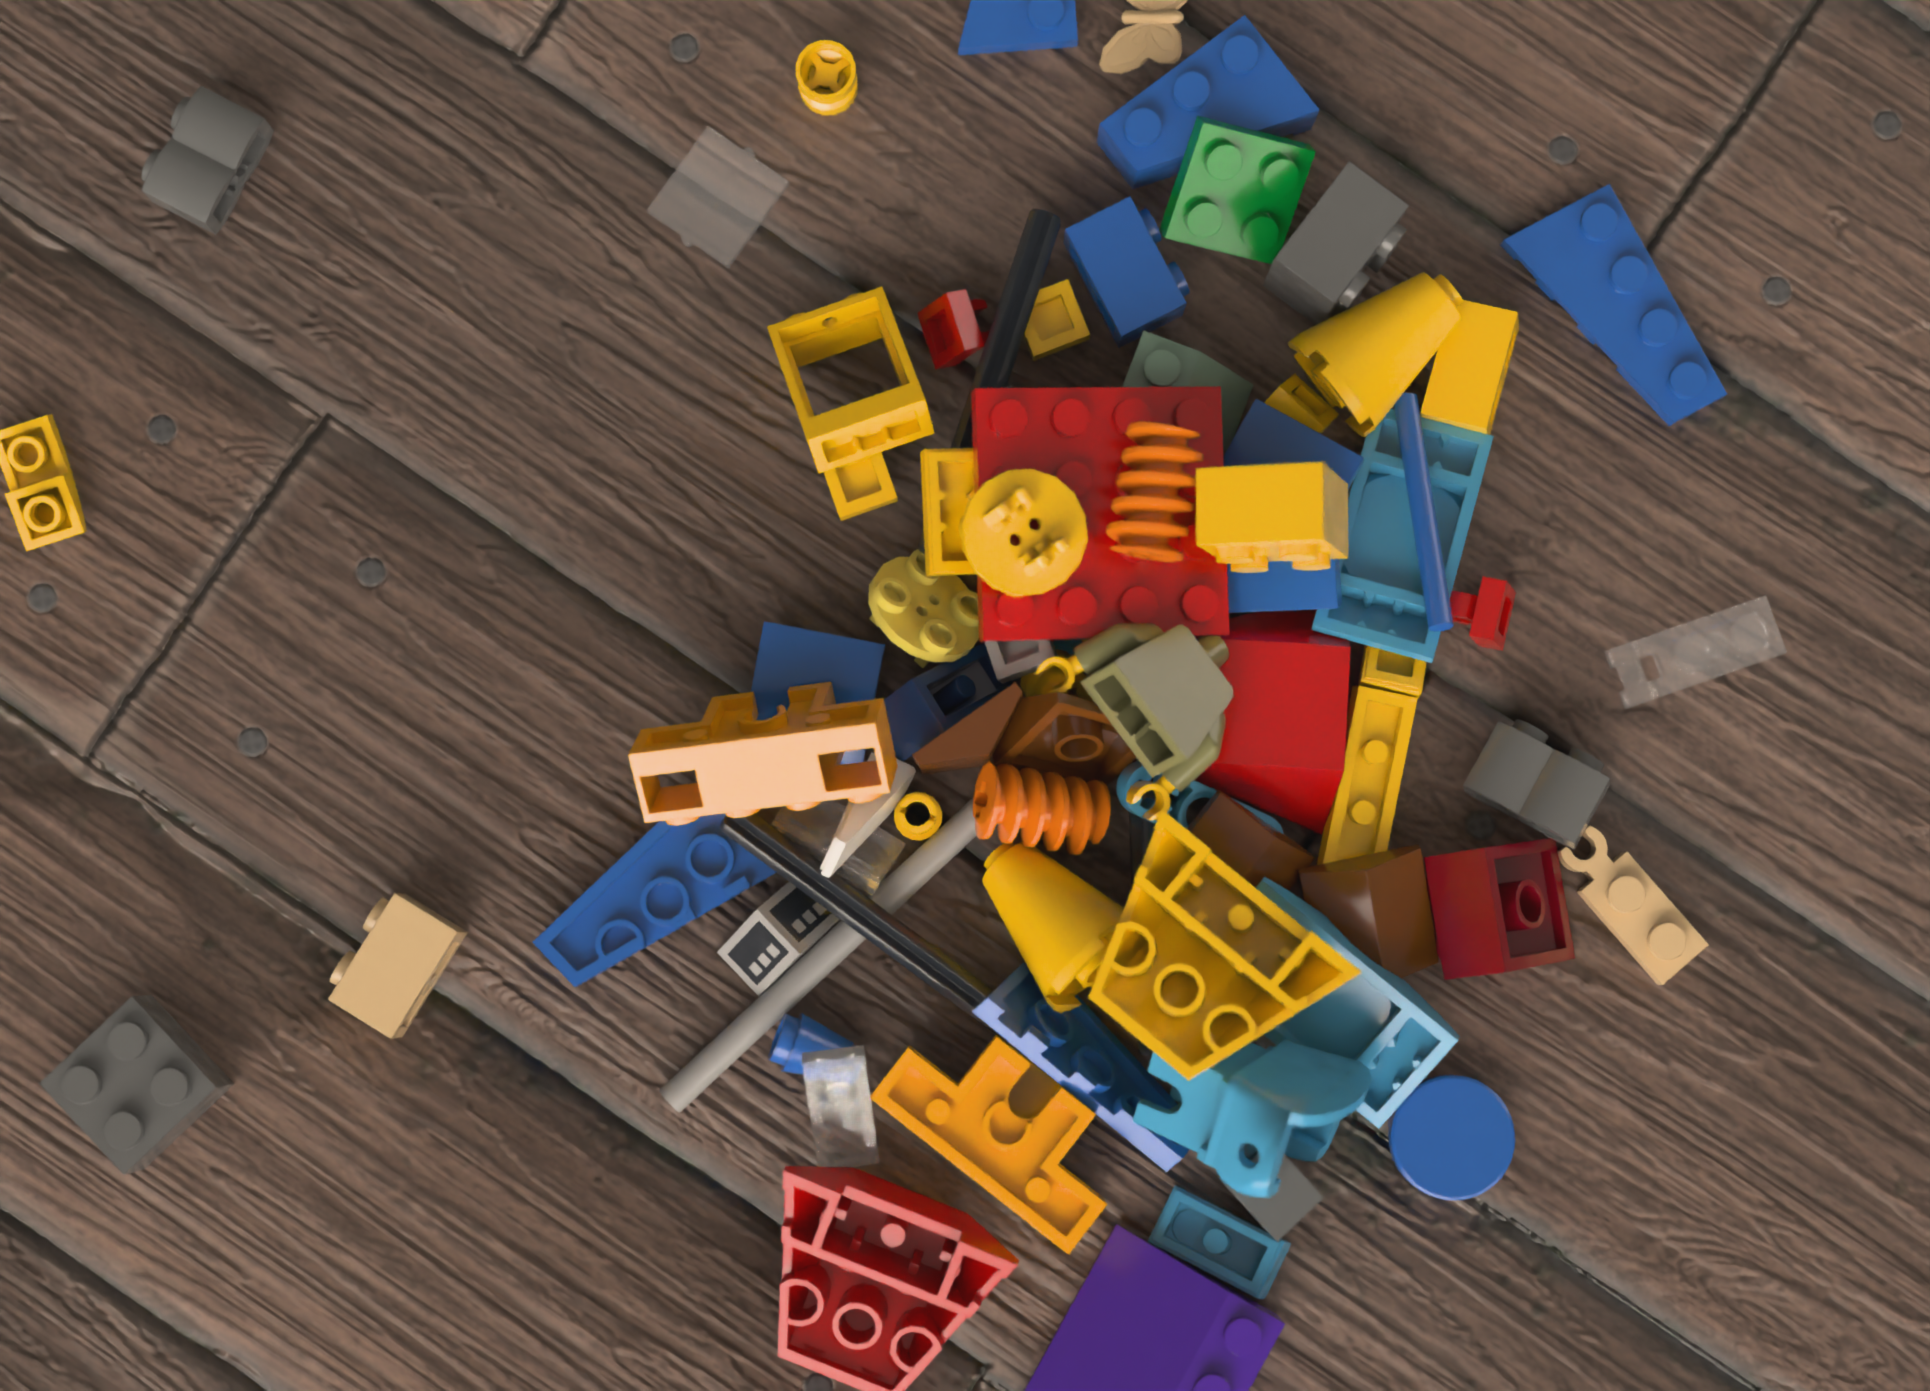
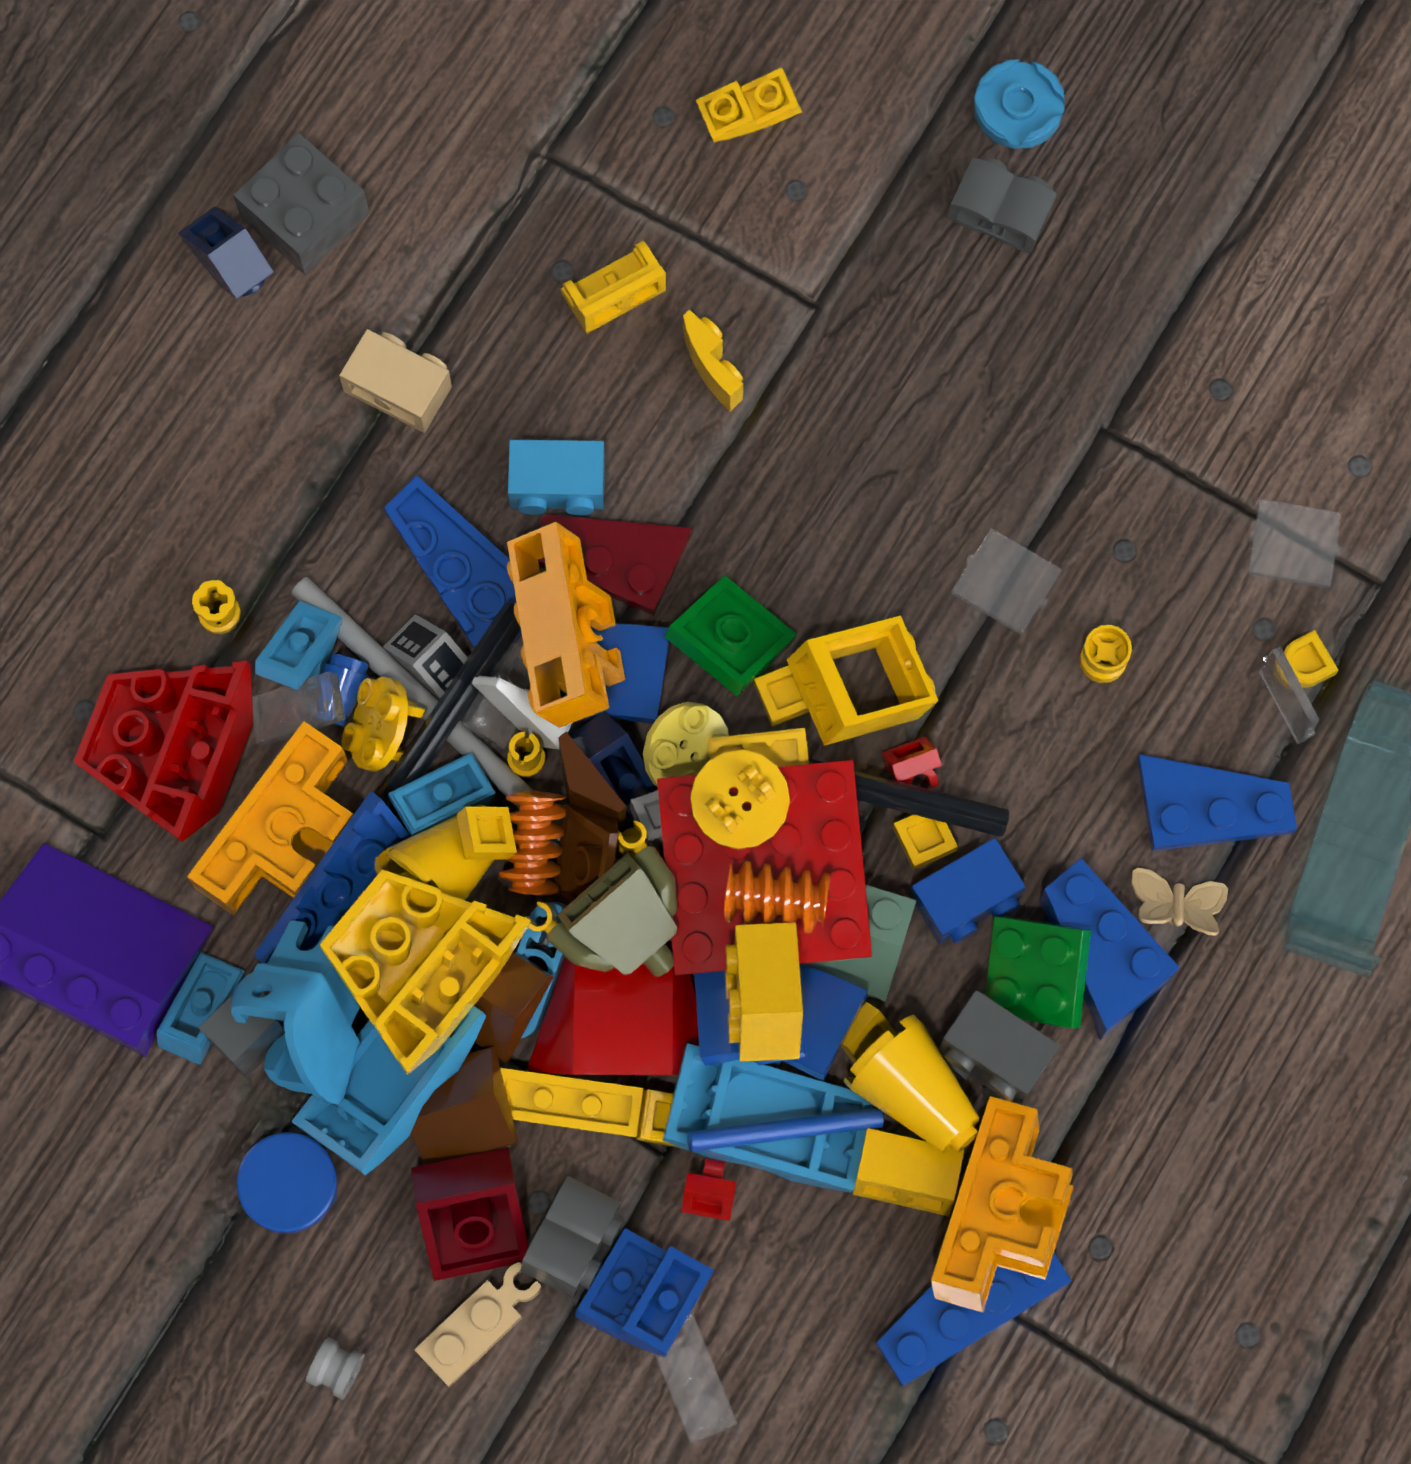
camera: 85 degrees right, 10 degrees down
(63, 130) = (1019, 104): none -> dark azure tile
(198, 1187) = (227, 252): none -> dark blue slope
(284, 671) = (615, 288): none -> yellow hinge
(377, 559) = (706, 350): none -> yellow slope
(545, 758) = (556, 476): none -> dark azure brick
(657, 680) = (627, 557): none -> dark red wing
(683, 1225) = (229, 611): none -> yellow bush
(761, 1102) = (299, 646): none -> dark azure slope
(777, 545) = (730, 635): none -> green plate
(870, 1001) = (379, 723): none -> yellow plate
(969, 924) = (441, 794): none -> dark azure slope
(1035, 864) = (486, 833): none -> yellow plate
(1532, 252) = (1004, 1210): none -> light orange piece
(1611, 697) = (644, 1293): none -> blue slope
(1684, 1082) = (335, 1368): none -> light grey wheel

